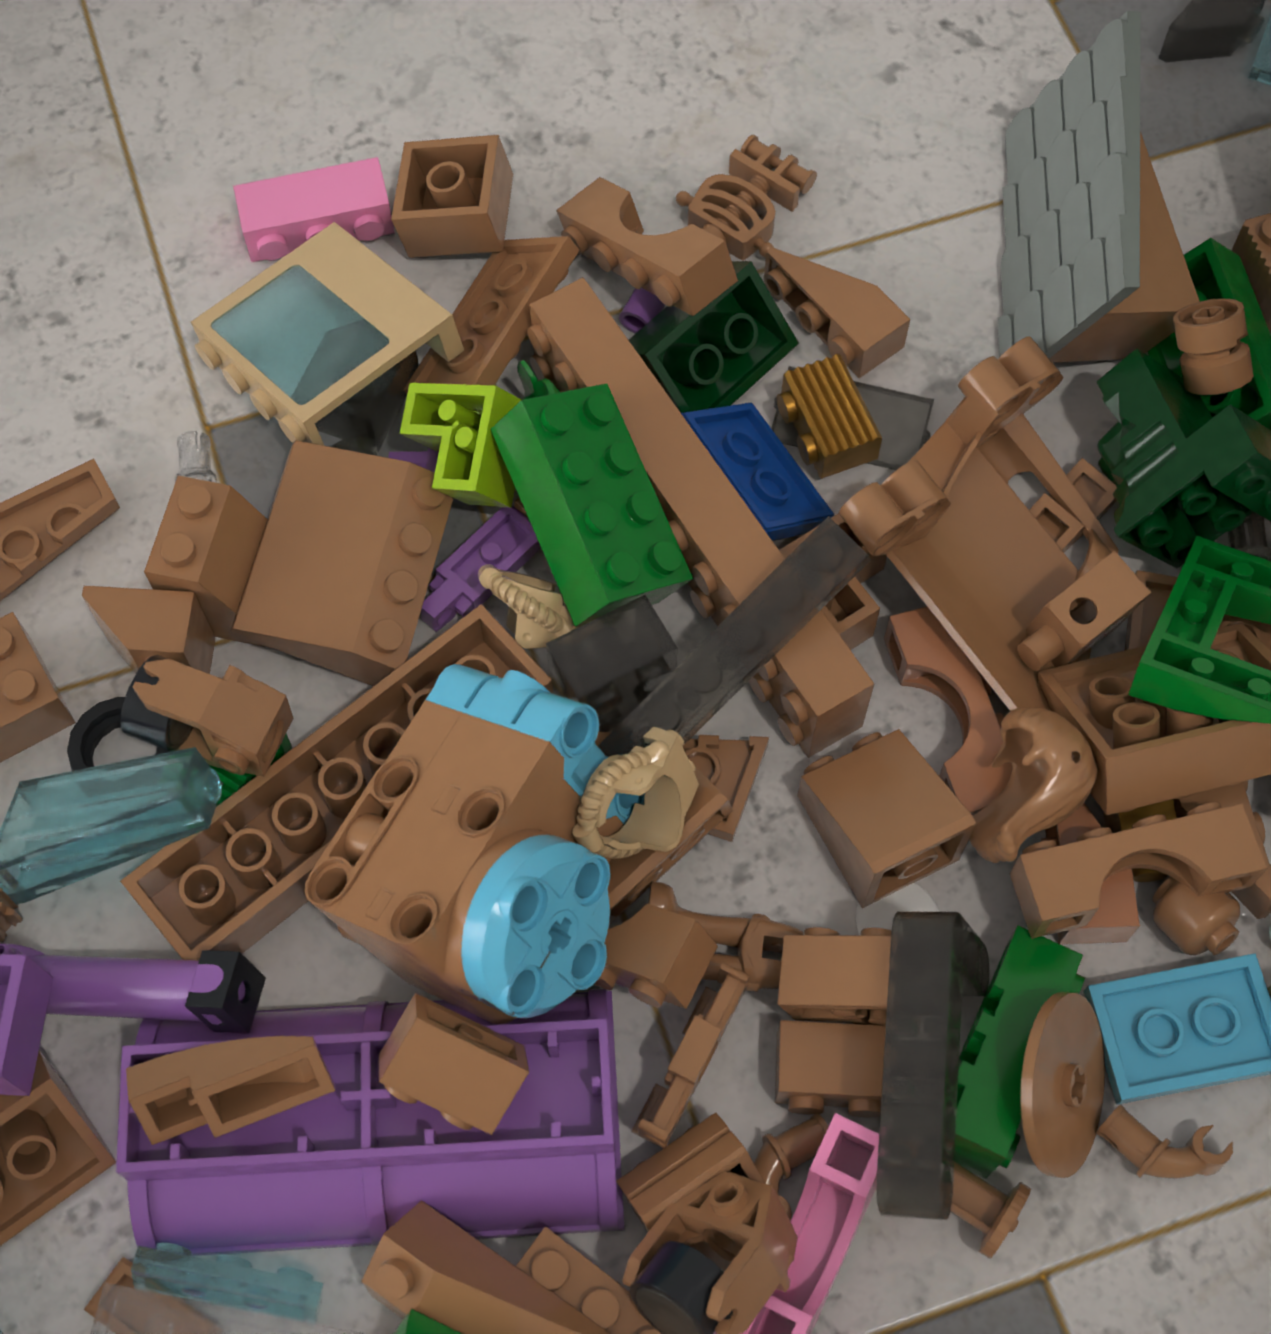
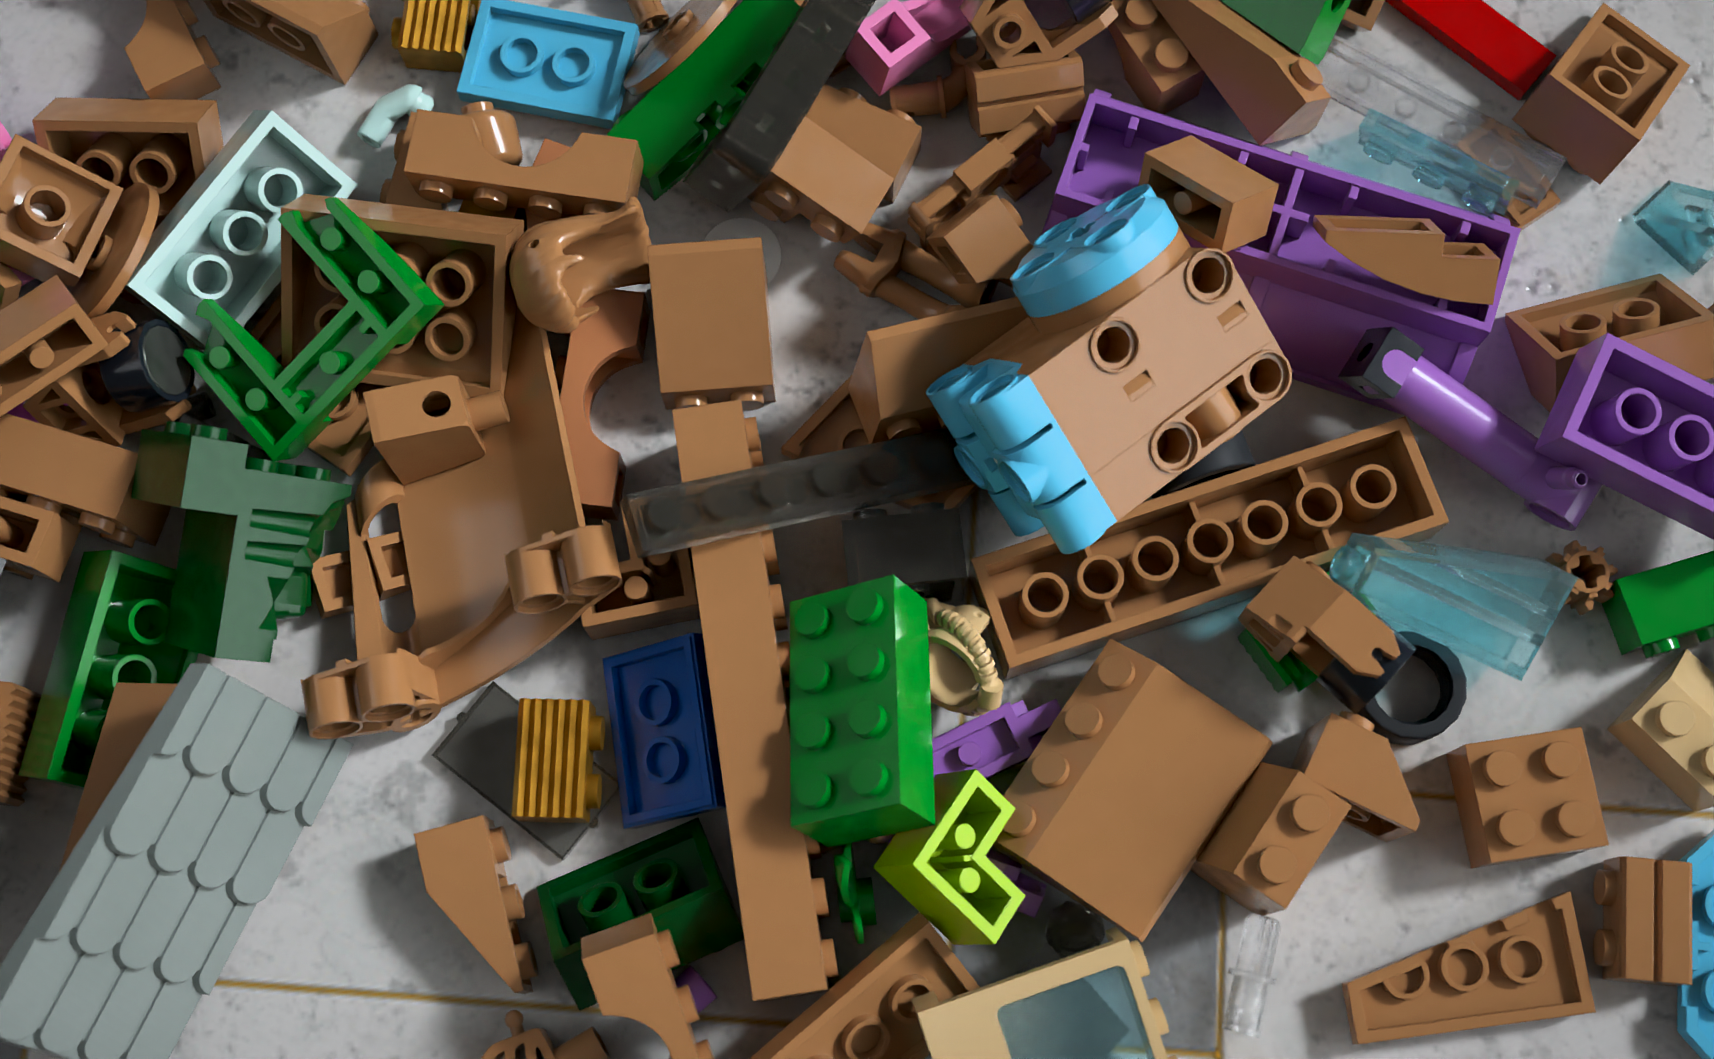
camera: 155 degrees left, 10 degrees up
(669, 788) = (950, 352): tan piece -> none
(1212, 348) = (134, 631): medium nougat wheel -> none

